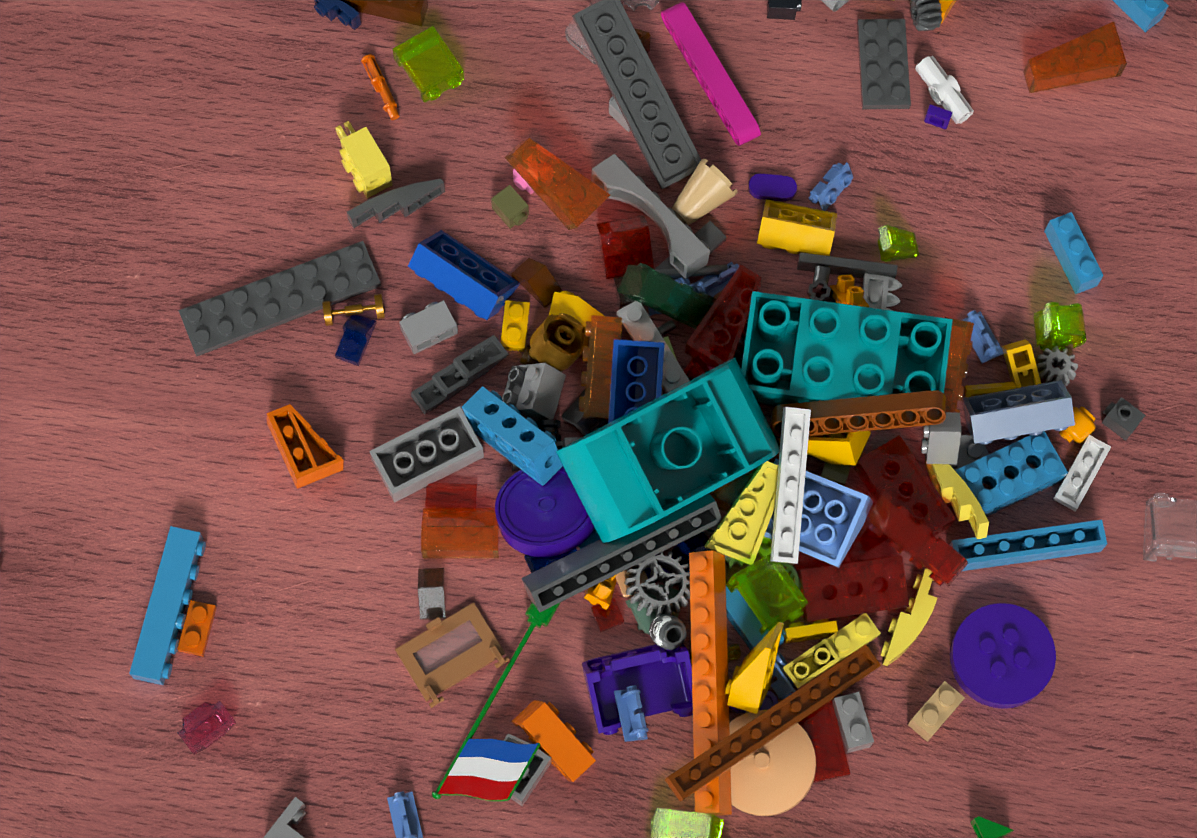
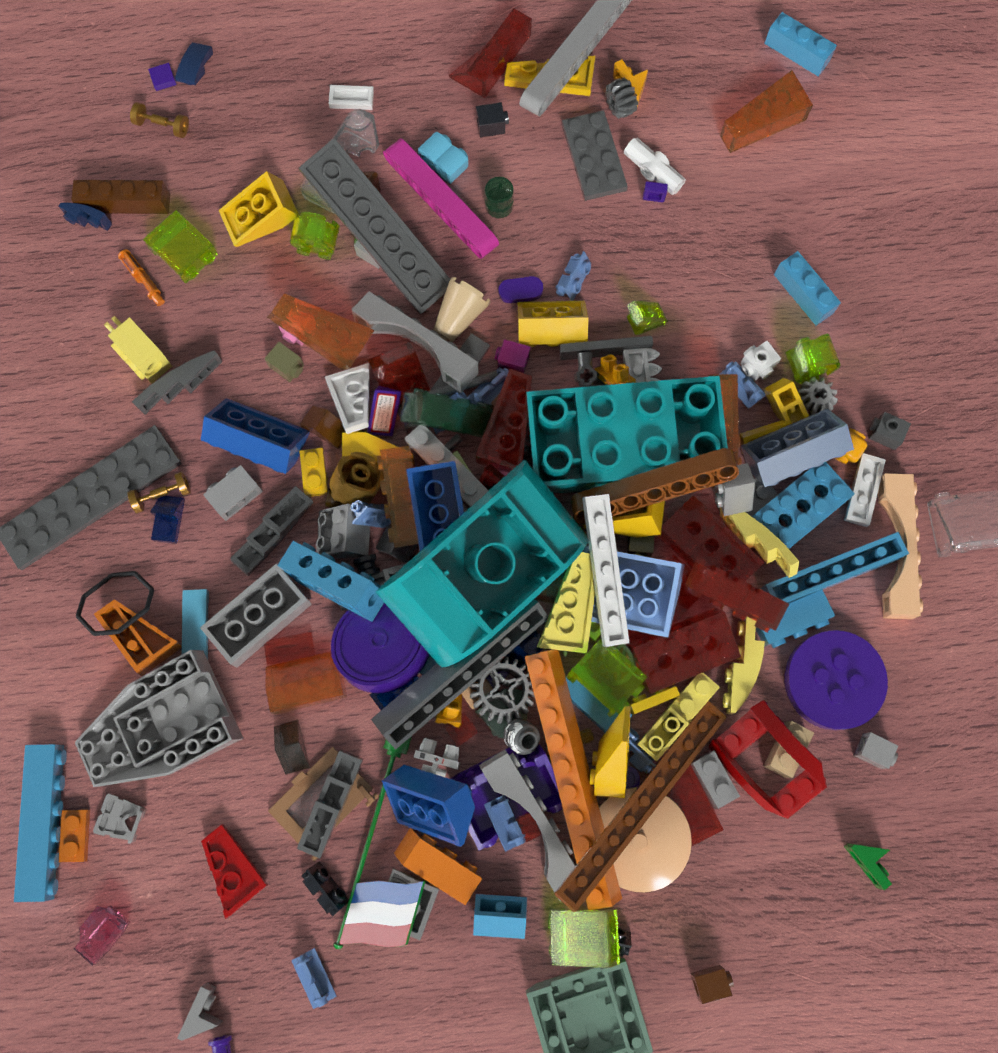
camera: 10 degrees left, 5 degrees up
(241, 618) = (113, 818): none -> light grey piece
(299, 430) = (129, 622): none -> black piece
(306, 537) = (159, 724): none -> light grey wedge
(347, 698) = (232, 870): none -> red wing
(357, 463) = (194, 615): none -> medium azure tile
(431, 726) = (318, 879): none -> black hinge
(460, 655) = (330, 804): none -> dark grey slope
(517, 44) = (258, 210): none -> yellow slope
(561, 672) = (430, 803): none -> blue slope
(565, 380) = (369, 514): none -> medium blue hinge
(567, 631) = (426, 753): none -> white hips
(570, 83) = (314, 235): none -> clear neon green brick
(571, 257) = (351, 396): none -> white wing
(601, 280) = (384, 411): none -> slope
(605, 802) = (500, 916): none -> dark azure brick
(642, 666) = (505, 779): none -> light grey arch
(658, 724) = (528, 826): none -> clear red plate
(723, 31) = (443, 157): none -> medium azure brick
(748, 253) = (513, 356): none -> magenta brick
(772, 86) = (499, 197): none -> clear green wheel
(892, 684) = (745, 733): none -> red wedge
(976, 585) = (800, 615): none -> dark azure brick
(1004, 316) = (759, 361): none -> white brick
(1027, 734) = (876, 751): none -> light grey brick
(1113, 490) = (897, 498): none -> light nougat arch

